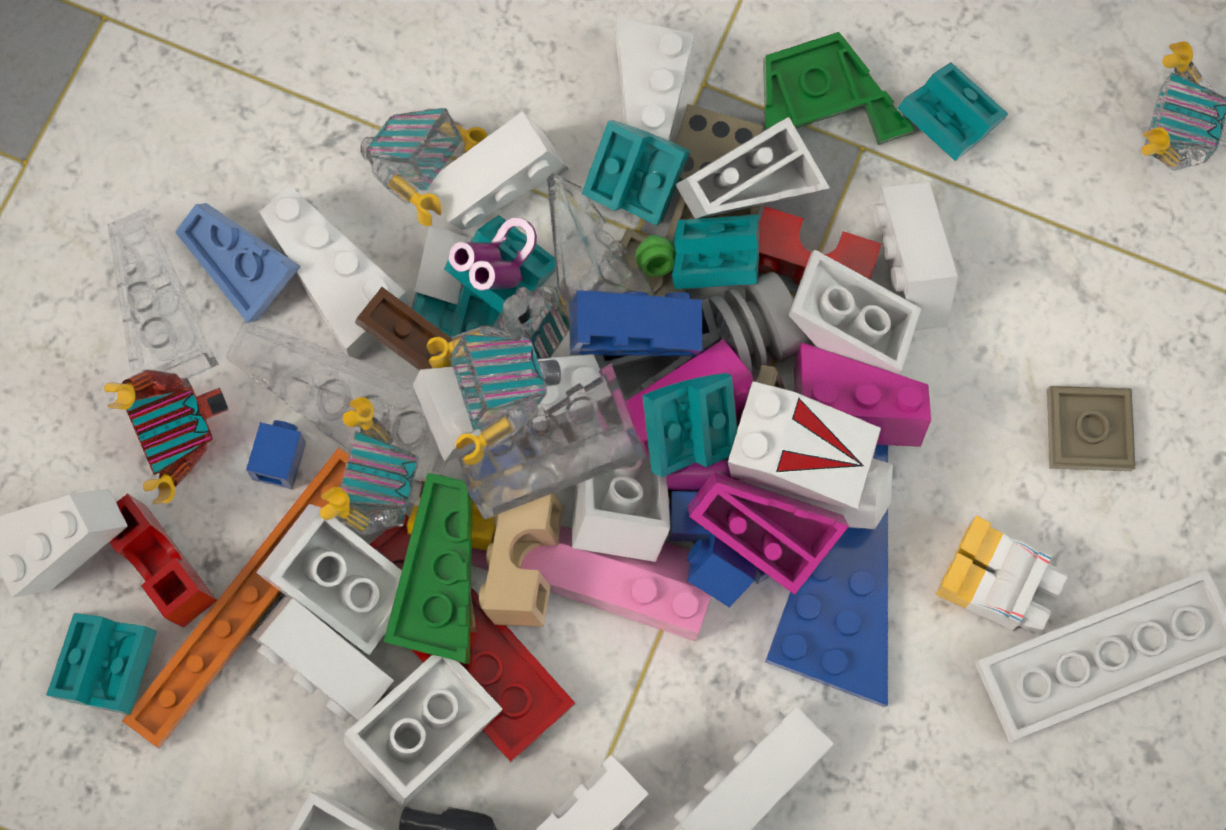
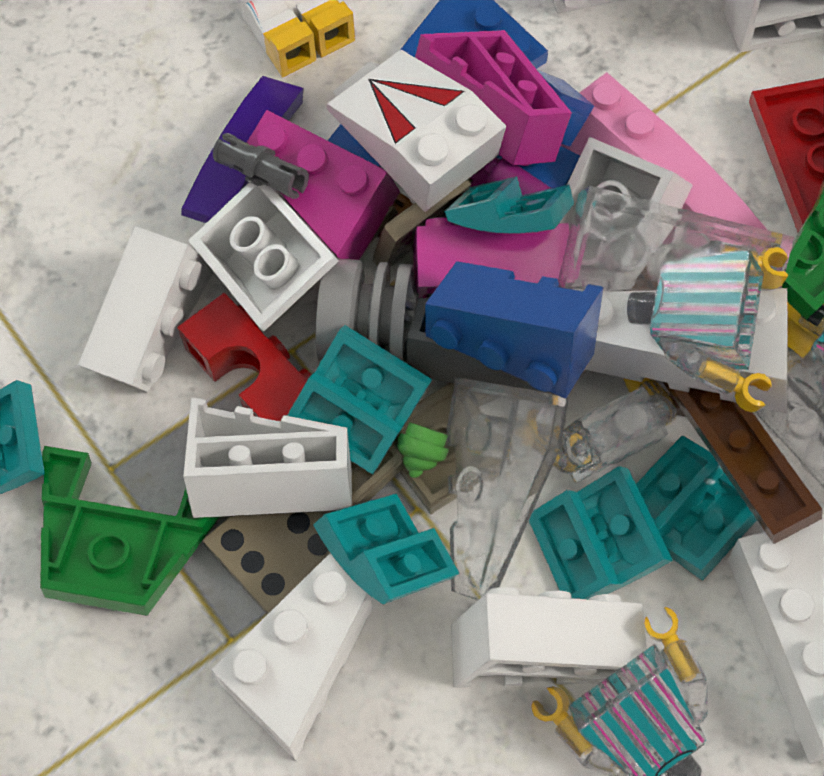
camera: 140 degrees left, 10 degrees down
(432, 277) = (674, 581): white sticker -> none
(484, 259) = (624, 514): magenta piece -> none
(514, 593) = (773, 176): tan arch -> none
(900, 366) = (260, 165): none -> dark grey pin
(948, 436) = (218, 183): none -> dark purple slope
(1090, 428) = (109, 93): dark tan tile -> none

